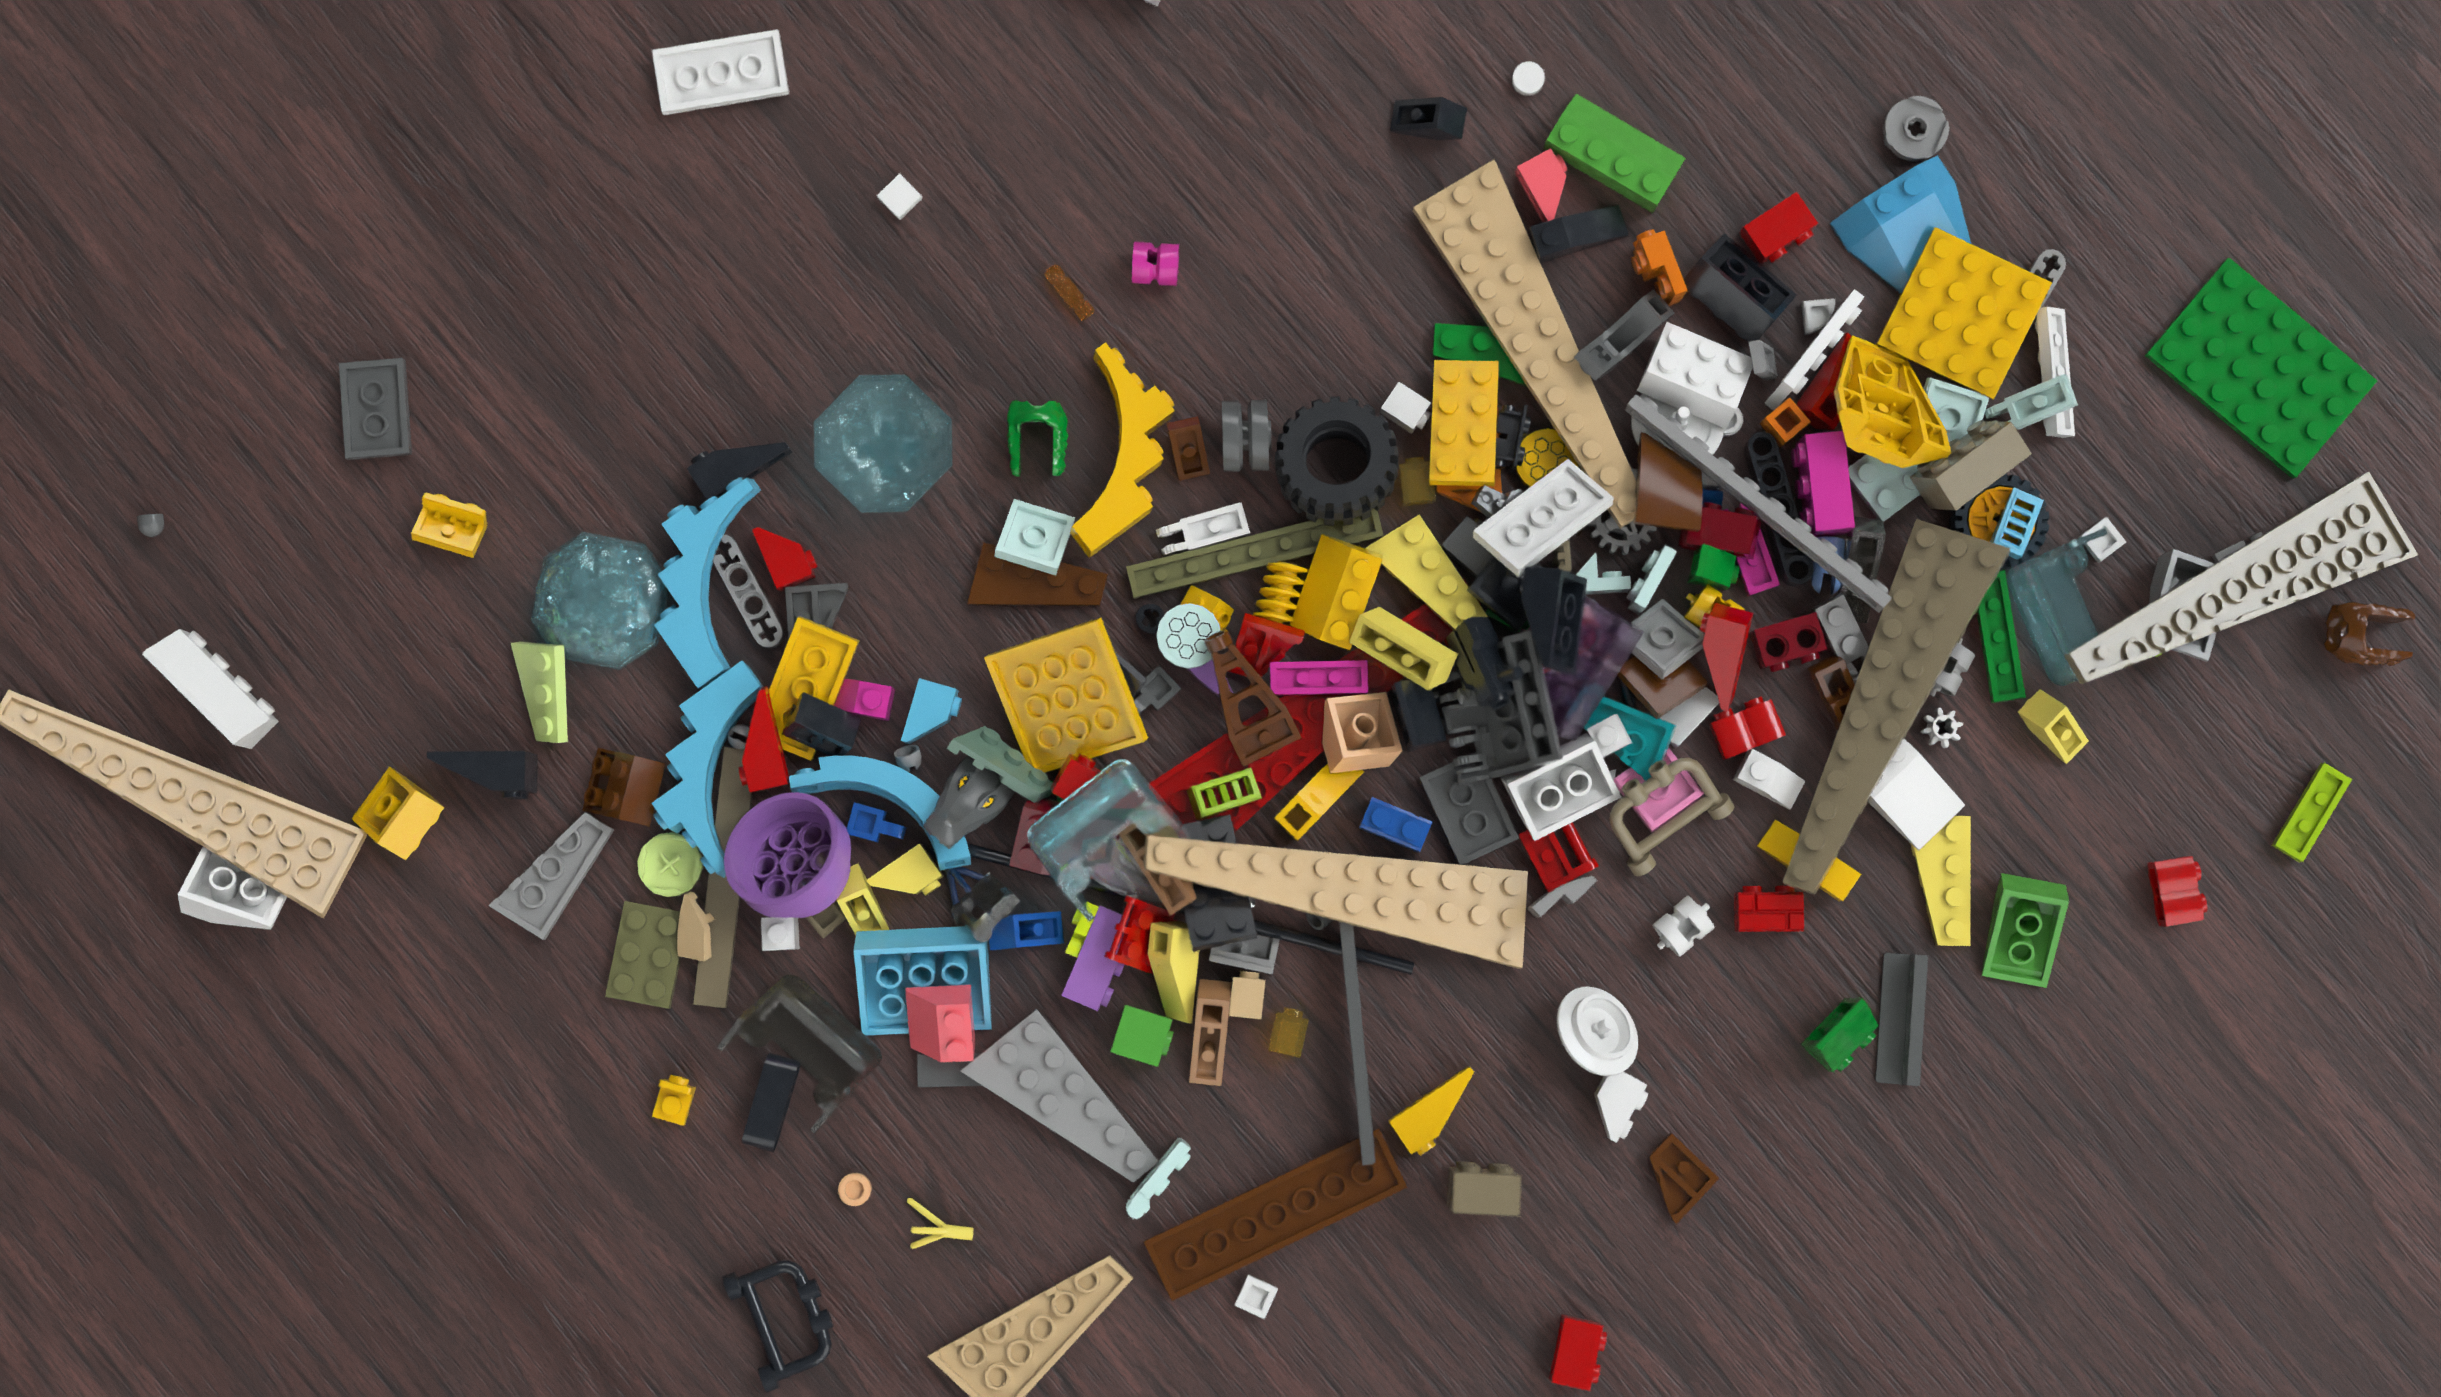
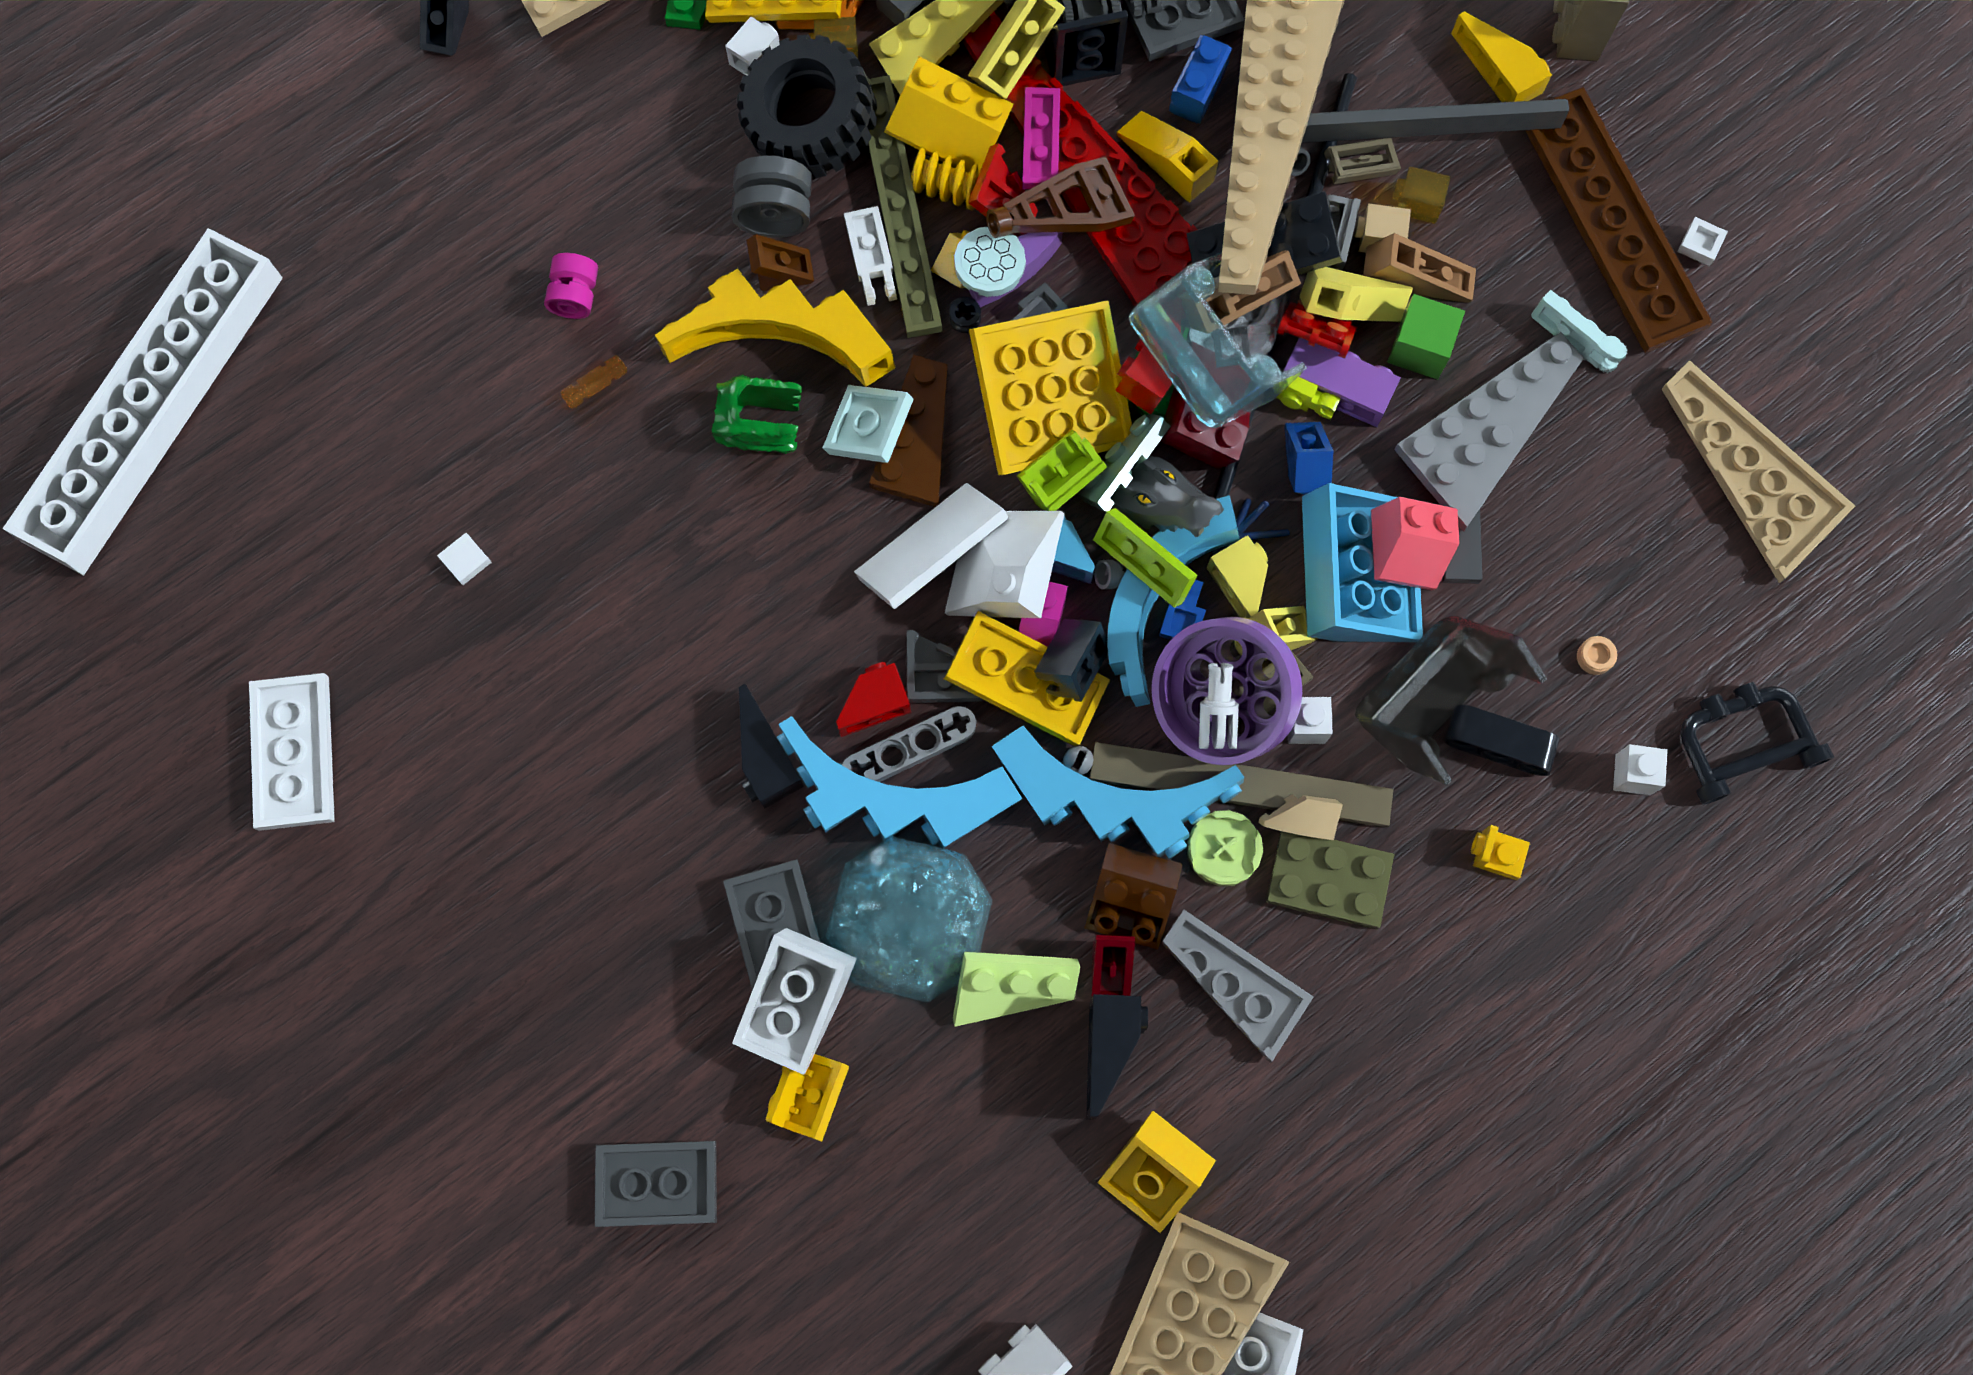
camera: 90 degrees left, 10 degrees down
(520, 508) = (793, 1000): none -> white slope
(562, 771) = (1112, 965): none -> dark red slope
(587, 489) = (765, 905): none -> dark grey plate
(747, 1221) = (1640, 769): none -> white brick
(763, 755) = (1098, 724): red slope -> none
(768, 847) = (1219, 705): none -> white arm
(883, 443) = (750, 568): clear light blue rock -> none
(905, 663) = (1008, 568): none -> white slope
(908, 783) = (1145, 557): none -> lime plate
(923, 599) = (931, 545): none -> white tile
(943, 1231) = (1642, 558): light yellow plant -> none
(989, 709) = (1061, 471): none -> lime hinge
(993, 899) = (1273, 484): clear smoke plate -> none
(1197, 802) = (1167, 262): lime slope -> none
(1314, 953) = (1342, 176): none -> dark tan tile
(1359, 733) = (1102, 101): light nougat slope -> none

